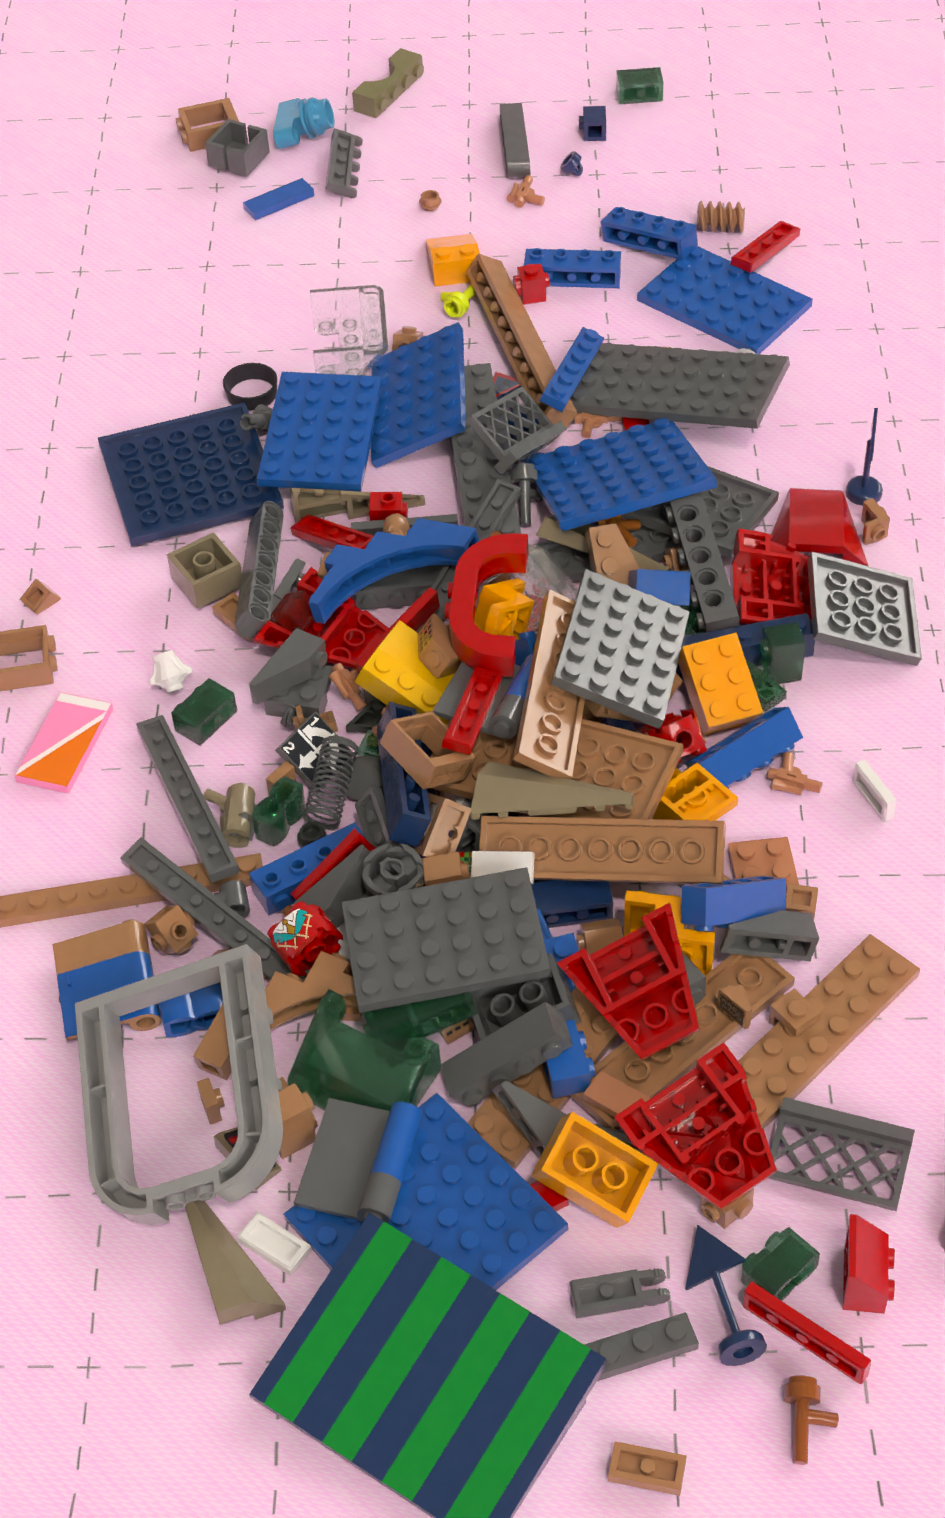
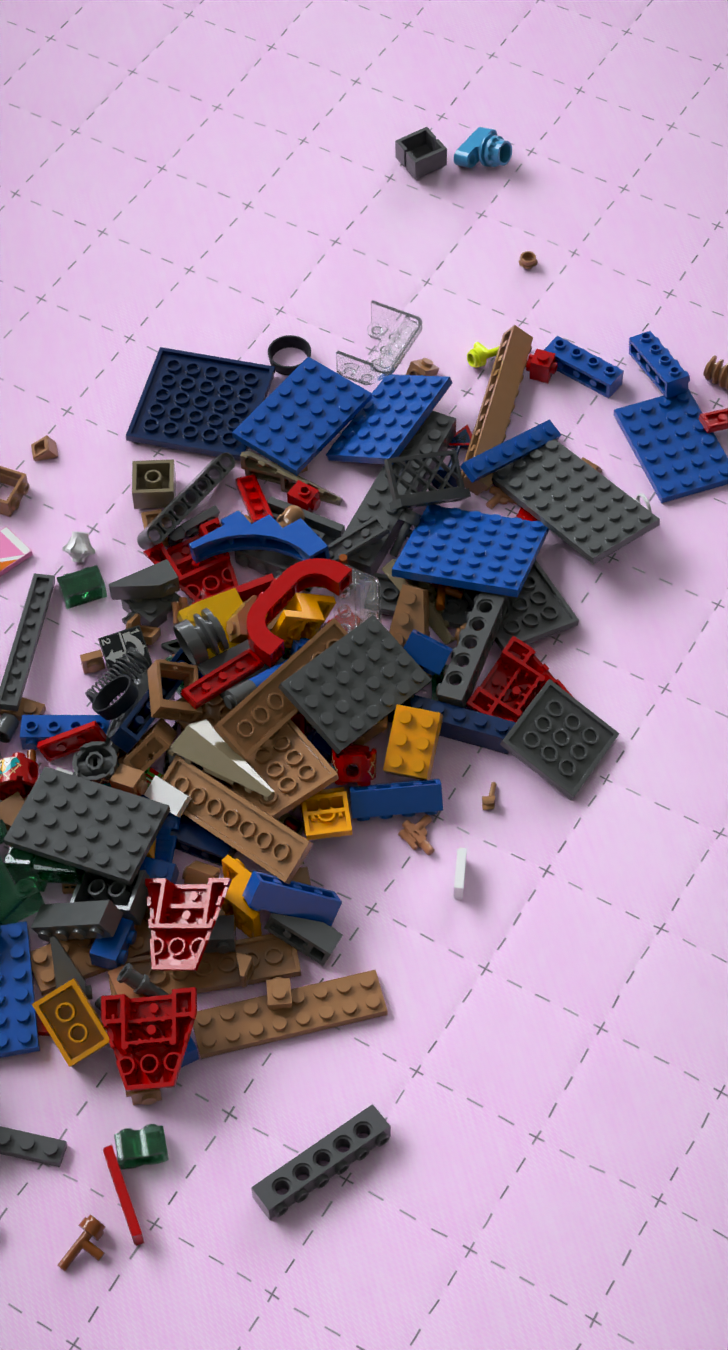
camera: 30 degrees right, 5 degrees up
(203, 114) = (421, 111): medium nougat window -> none
(237, 813) = (51, 669): dark tan piece -> none
(258, 419) = (269, 385): dark grey pin -> none
(278, 199) = (423, 208): blue tile -> none
(279, 811) = (71, 682): clear green brick -> none
(293, 611) = (179, 544): clear red brick -> none
(309, 833) = (83, 707): pearl dark grey plate -> none
(339, 885) = (60, 755): dark grey slope -> none
(341, 788) = (112, 690): none -> black tyre
(342, 164) = (488, 198): dark grey hinge -> none
(375, 96) = (555, 151): olive arch -> none
(416, 677) = (204, 635): none -> dark grey wheel
(451, 258) = (503, 313): light orange slope -> none
(514, 140) = (628, 236): dark grey beam -> none
(523, 193) = (601, 285): nougat piece -> none
(571, 162) = (652, 276): dark blue tile -> none
(593, 123) = (697, 249): dark blue brick -> none
(617, 1292) = (36, 1105): dark grey hinge -> none
(636, 1082) = (140, 983): none -> dark grey pin
(708, 1261) = (103, 1119): dark blue piece -> none
(763, 858) = (350, 884): nougat plate -> none
(767, 689) = (447, 757): clear green plate -> none
(782, 653) = (475, 743): clear green brick -> none
(801, 898) = (349, 922): medium nougat plate -> none
(819, 524) = (589, 661): red wedge -> none
(836, 706) = (488, 802): none -> medium nougat hand
(853, 1130) = (252, 1087): dark grey fence -> none
(865, 486) = (647, 647): dark blue piece -> none
(866, 1267) = (187, 1176): slope -> none
(875, 522) = (628, 683): medium nougat bracket -> none

